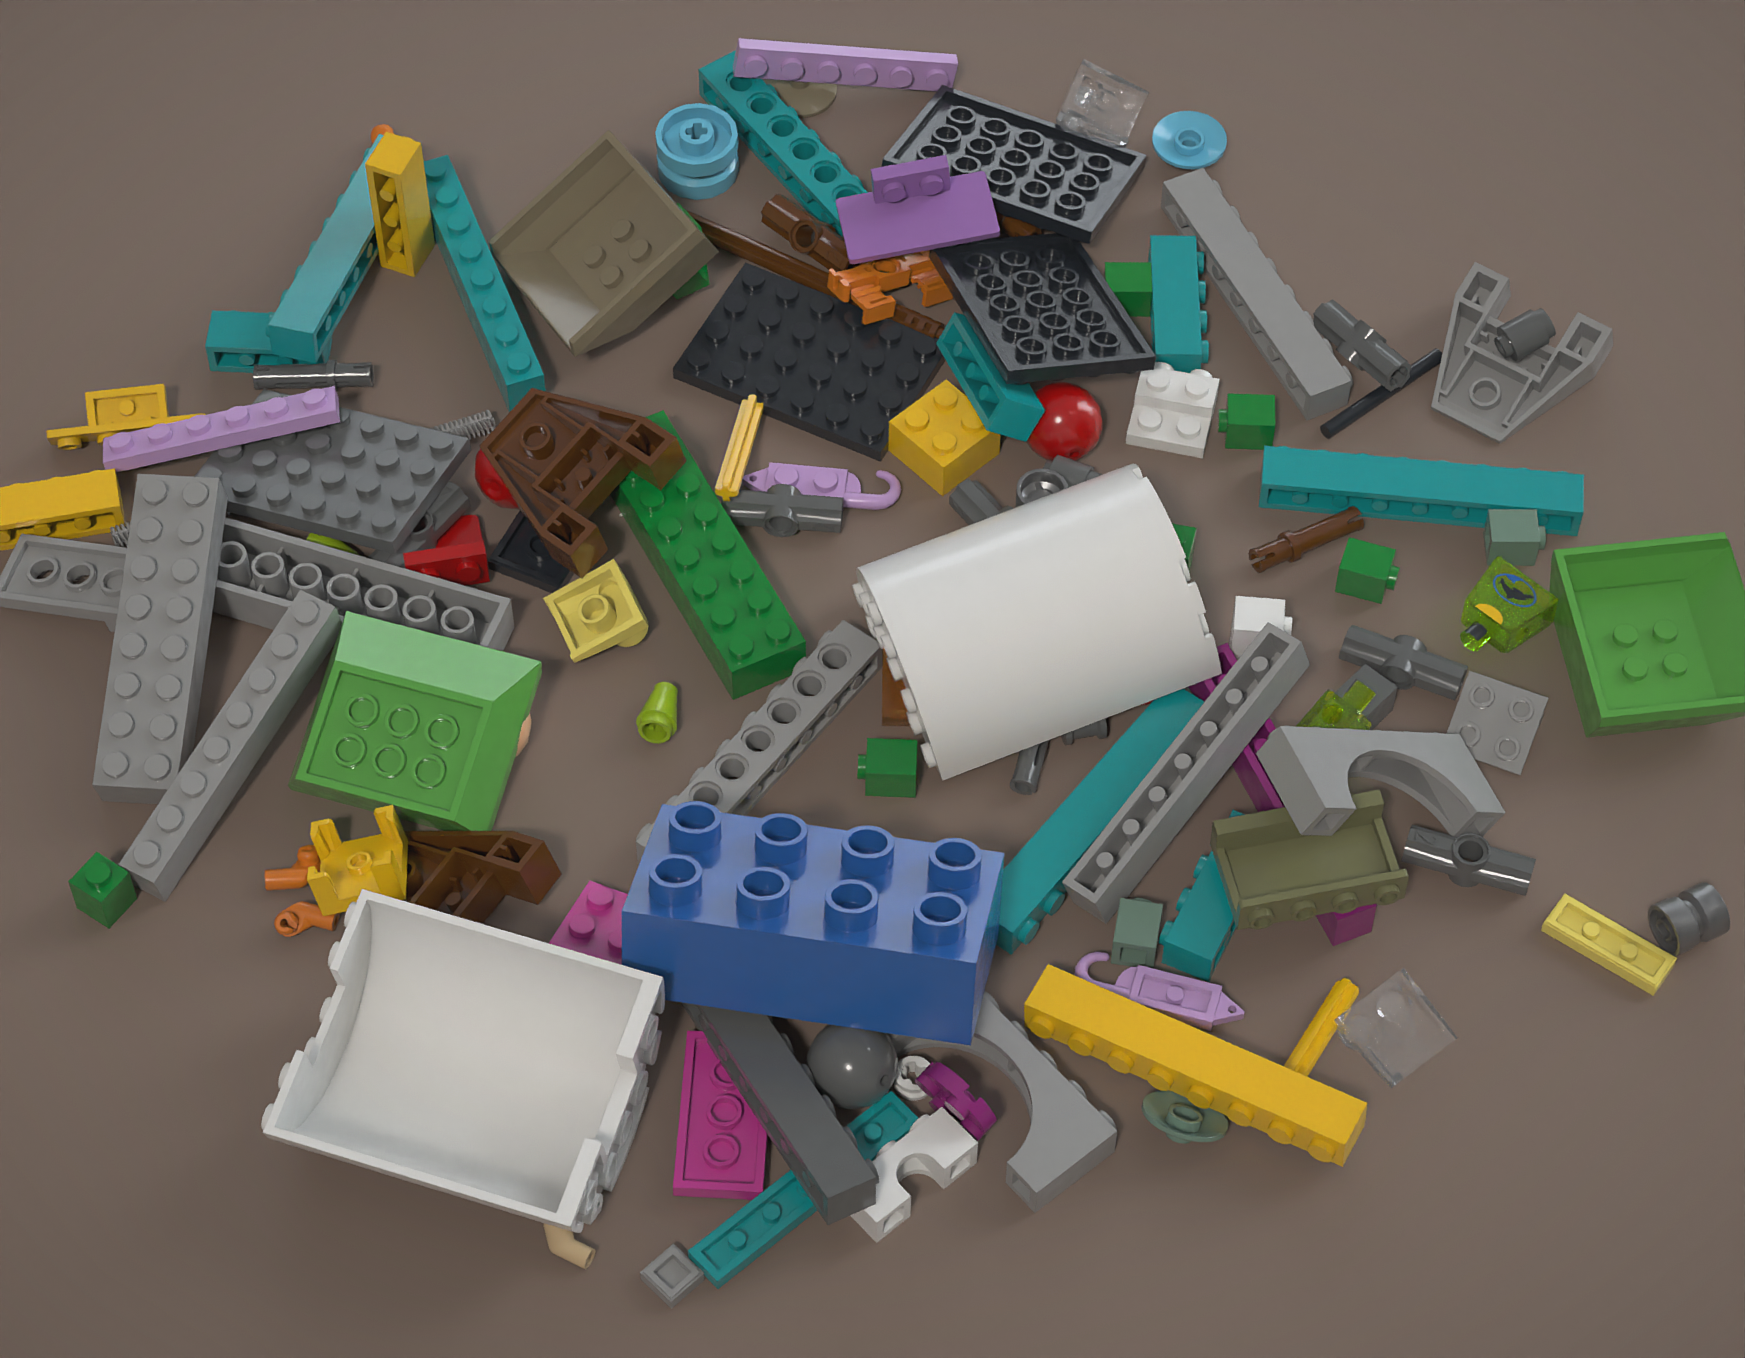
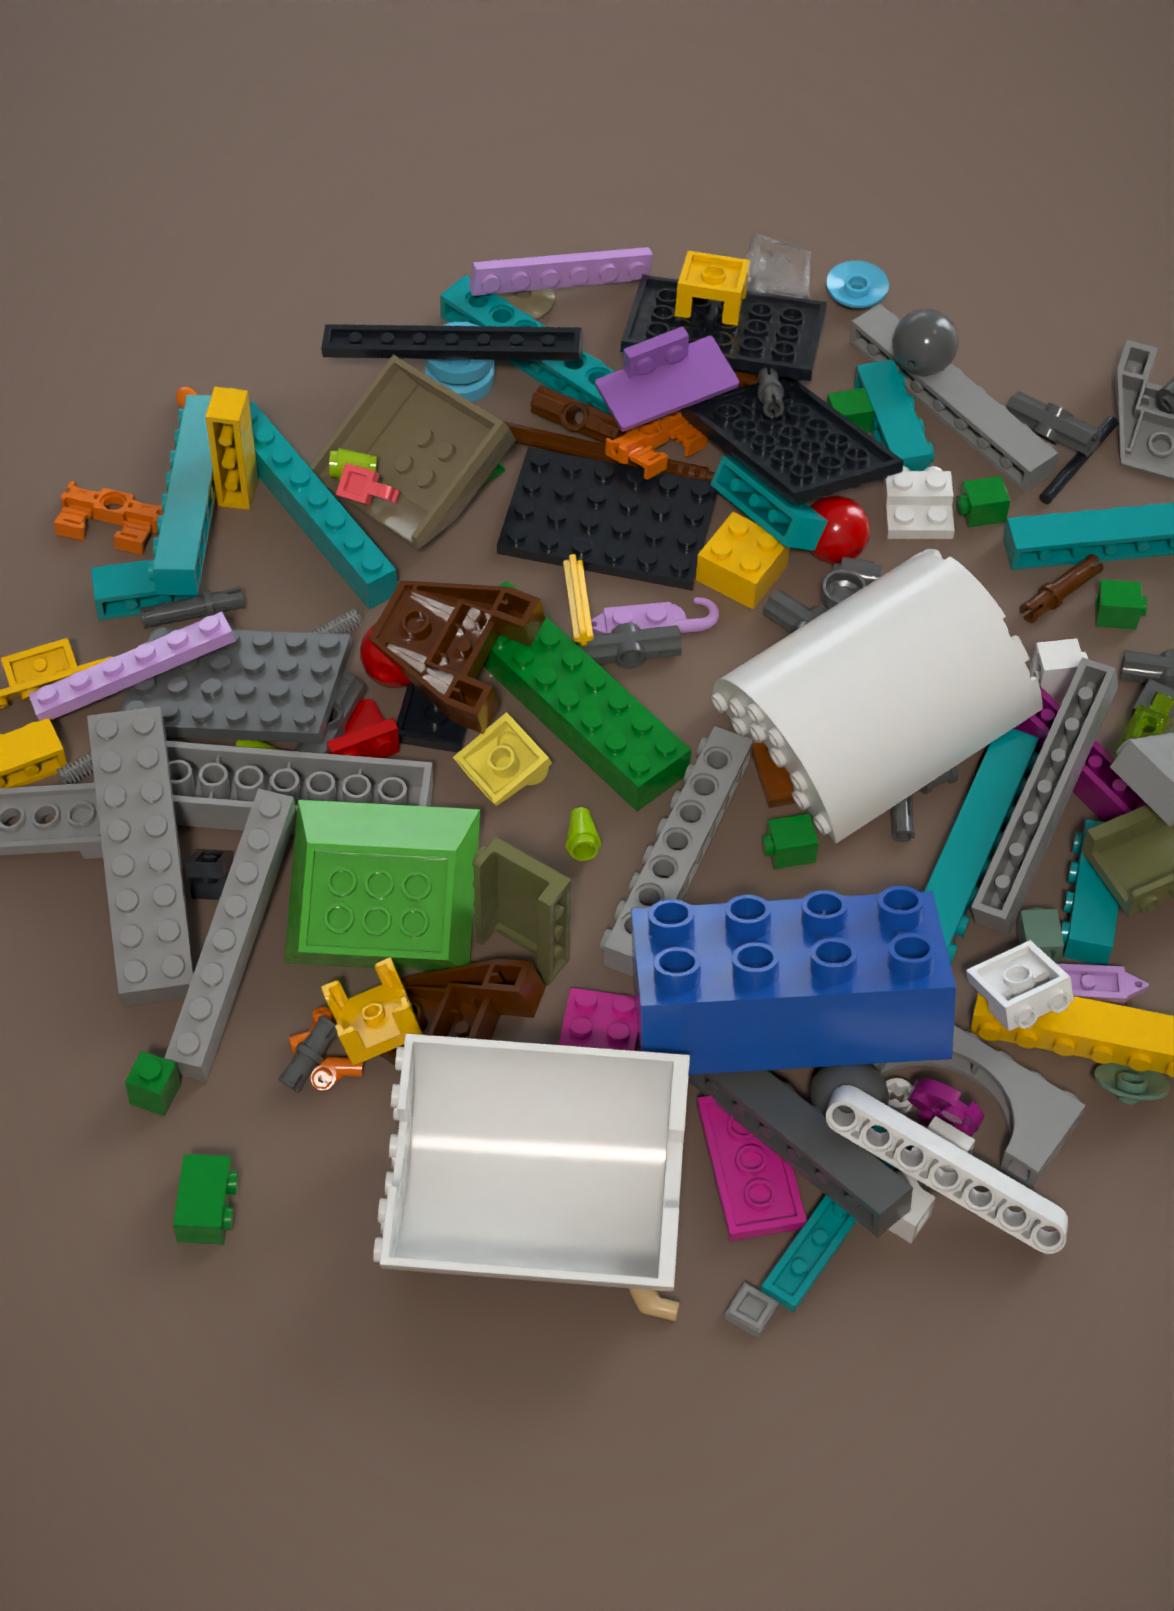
camera: 15 degrees left, 0 degrees up
(118, 1026) = (204, 1199): none -> green brick
(228, 667) = (208, 872): none -> black slope
(230, 235) = (132, 516): none -> orange piece
(277, 894) = (309, 1054): none -> dark grey pin
(533, 246) = (339, 458): none -> lime cone
(536, 273) = (361, 485): none -> coral plate
(554, 773) = (523, 904): none -> olive panel
(687, 127) = (452, 342): none -> black plate
(951, 1171) = (955, 1185): none -> white beam
(1012, 106) = (713, 279): none -> yellow panel
(1035, 249) = (770, 392): none -> dark grey pin
(1084, 981) = (1022, 985): none -> white plate
(1232, 222) = (925, 342): none -> dark grey piece

